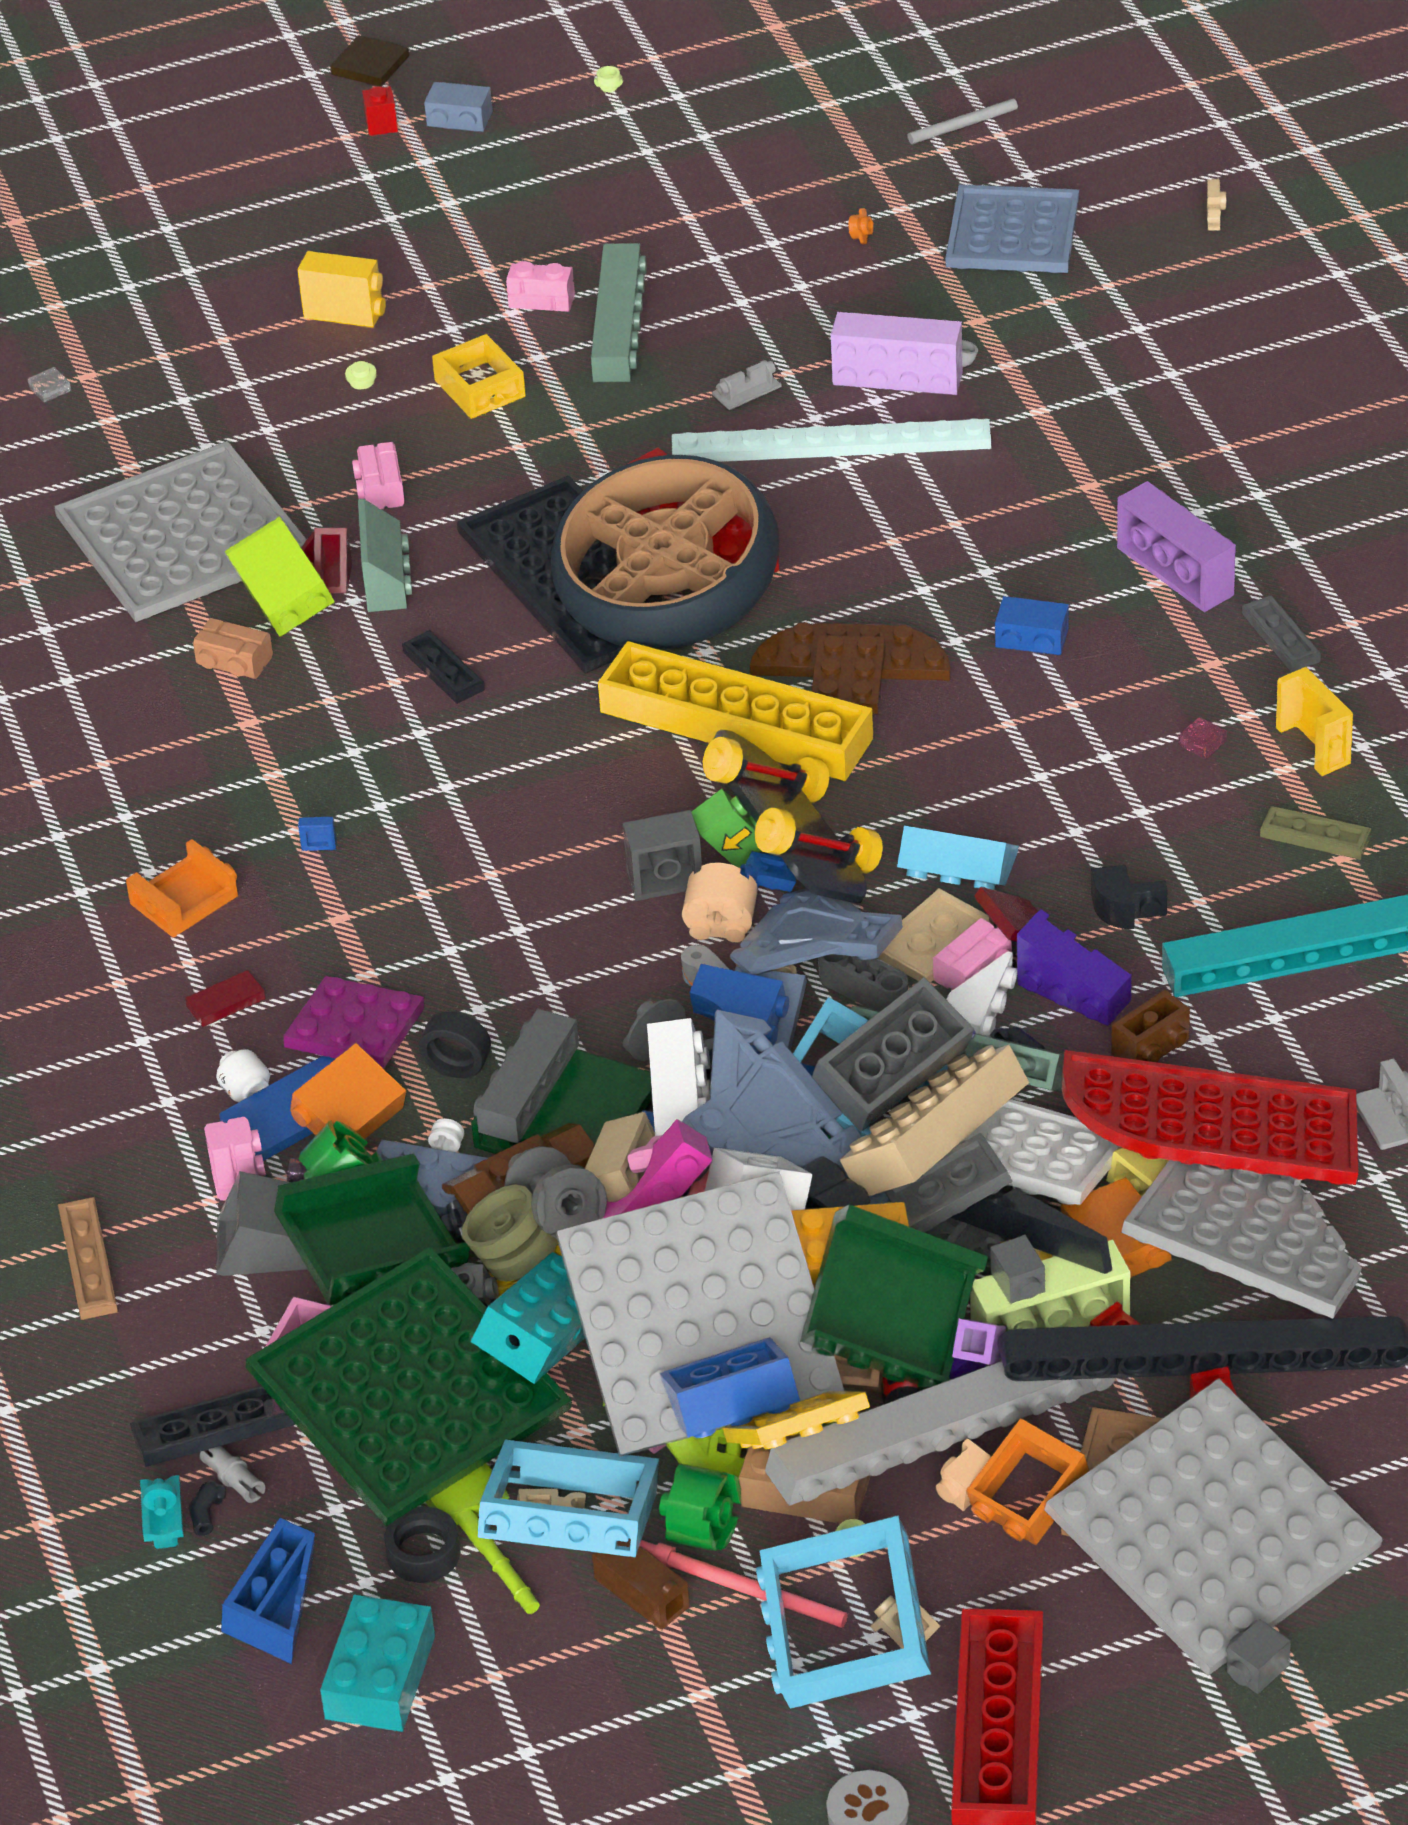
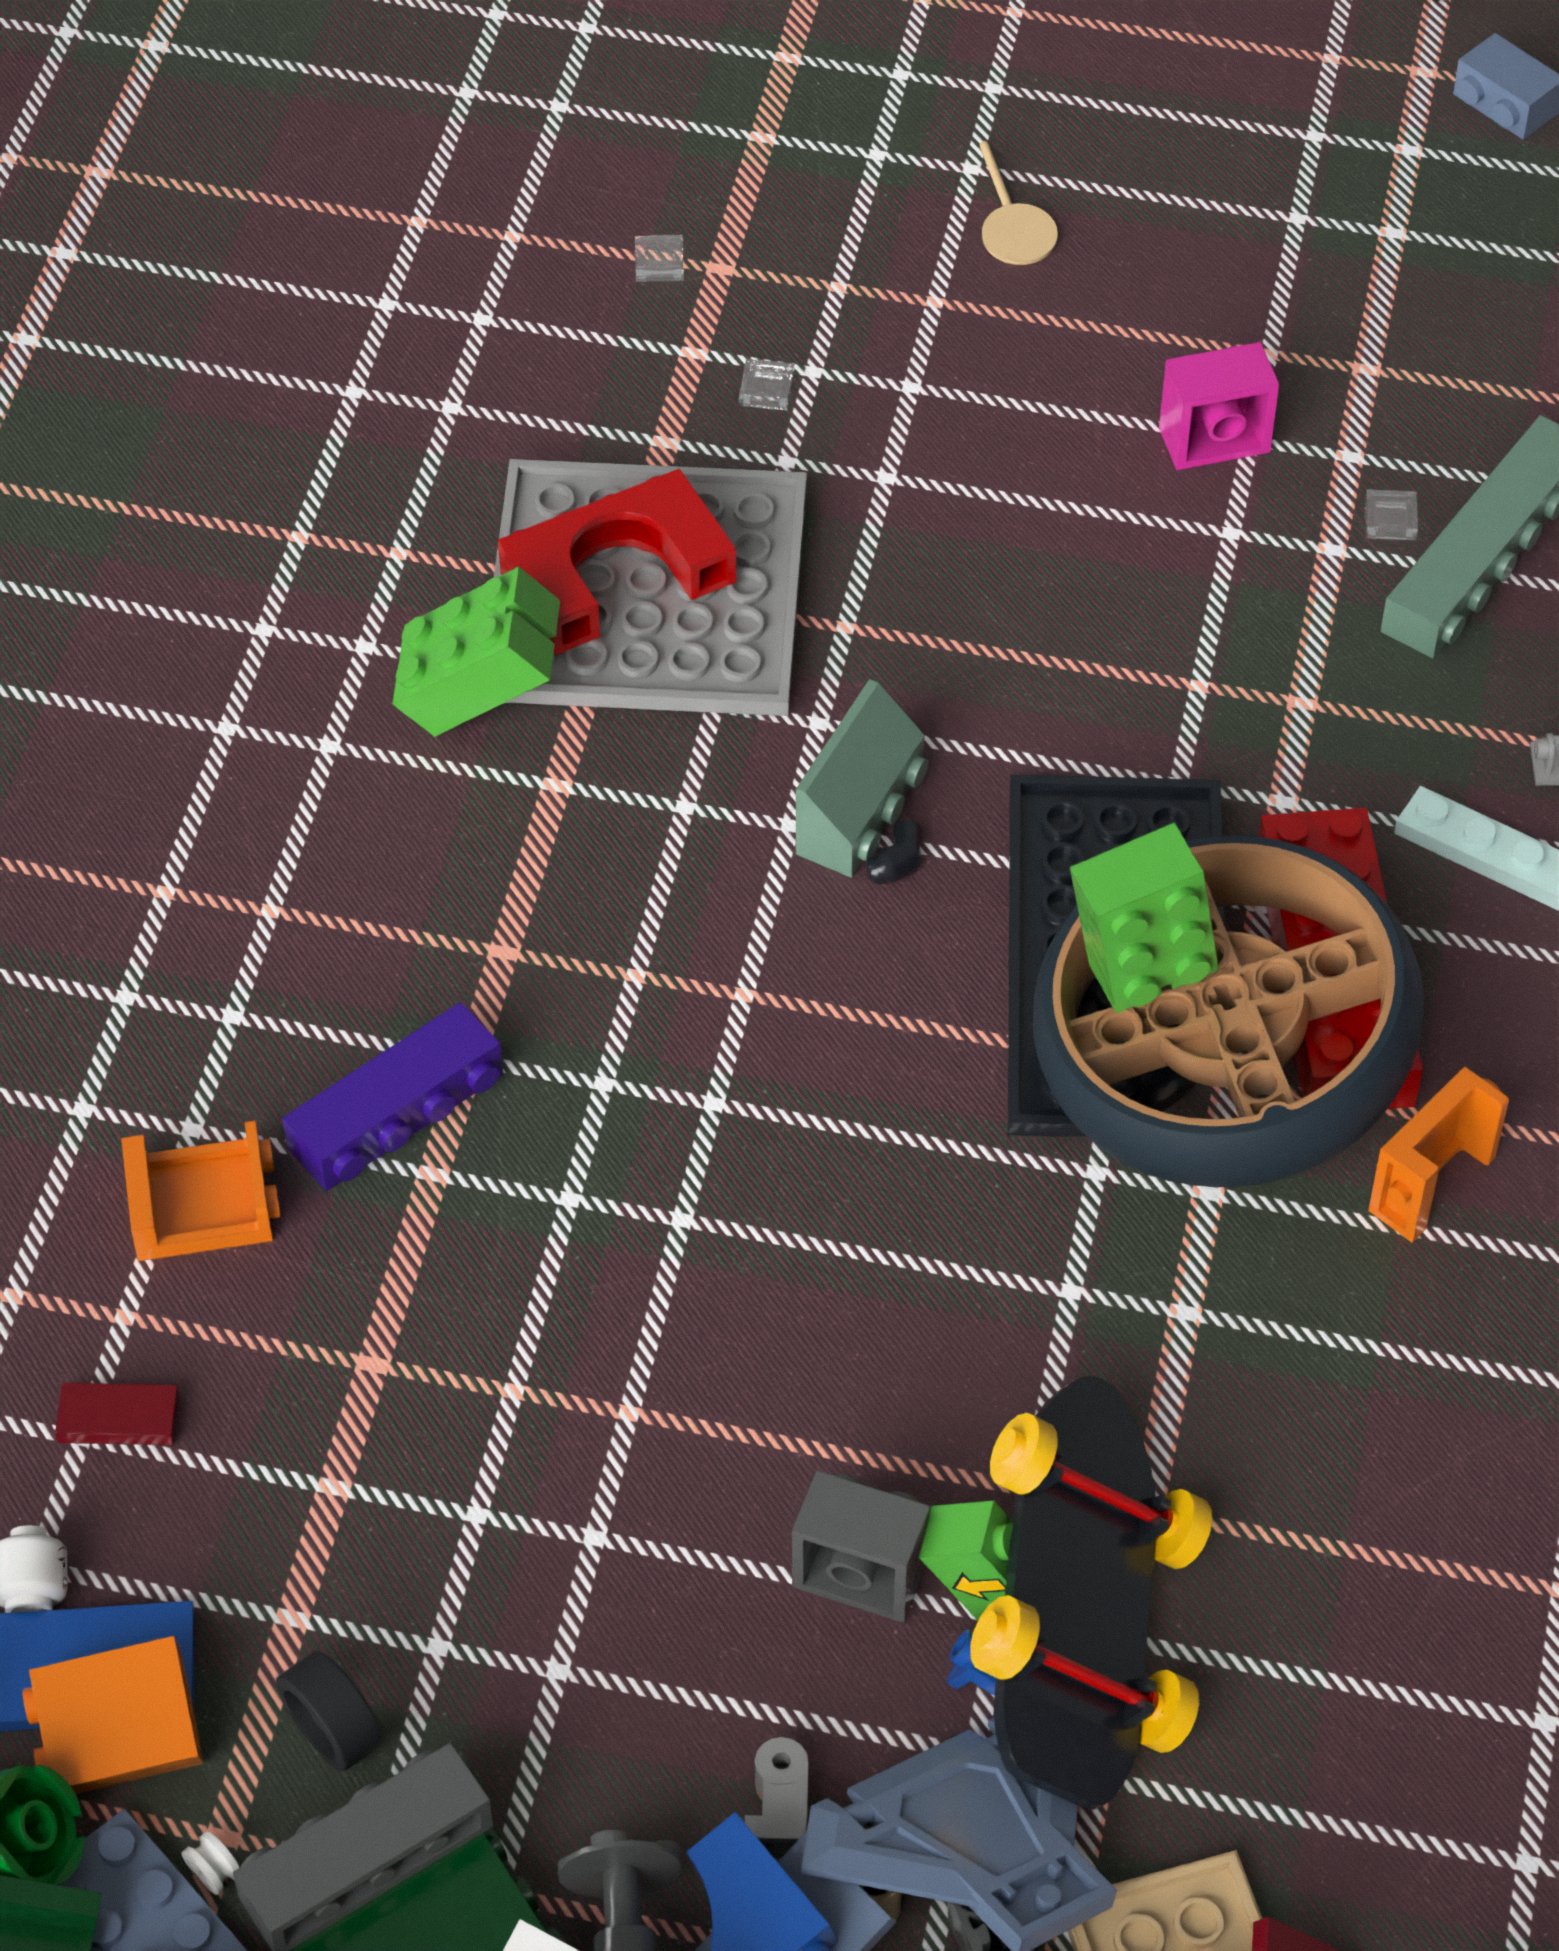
camera: 30 degrees right, 10 degrees up
(126, 588) = (476, 652): none -> bright green piece
(165, 415) = (766, 384): none -> clear tile
(168, 489) = (653, 516): none -> red arch
(232, 648) = (561, 821): nougat brick -> none
(238, 288) = (1016, 231): none -> tan piece
(251, 802) = (393, 1096): none -> dark purple brick
(279, 576) = (693, 742): lime slope -> none
(317, 833) = (437, 1205): blue tile -> none
(331, 557) = (786, 743): dark red slope -> none
(341, 289) = (1125, 305): yellow brick -> none
(354, 1013) = (243, 1571): magenta plate -> none
(361, 375) = (1067, 455): yellowish green plate -> none
(379, 475) = (964, 639): bright pink brick -> none
(380, 110) = (1395, 42): red brick -> none
(427, 584) = (899, 859): none -> black arm
(429, 312) = (1218, 405): none -> dark pink brick
(443, 667) = (823, 1010): black tile -> none
(476, 398) = (1194, 578): yellow window -> none
(540, 286) = (1408, 439): bright pink brick -> none
(557, 327) = (1391, 514): none -> clear tile
(608, 509) = (1145, 917): none -> bright green piece
(706, 698) = (1160, 1342): yellow brick -> none
(719, 902) = (879, 1686): light nougat brick -> none
(811, 562) = (1460, 1117): none -> orange panel
(851, 658) = (1395, 1335): reddish brown plate -> none
(956, 857) = (1302, 1808): medium azure slope -> none

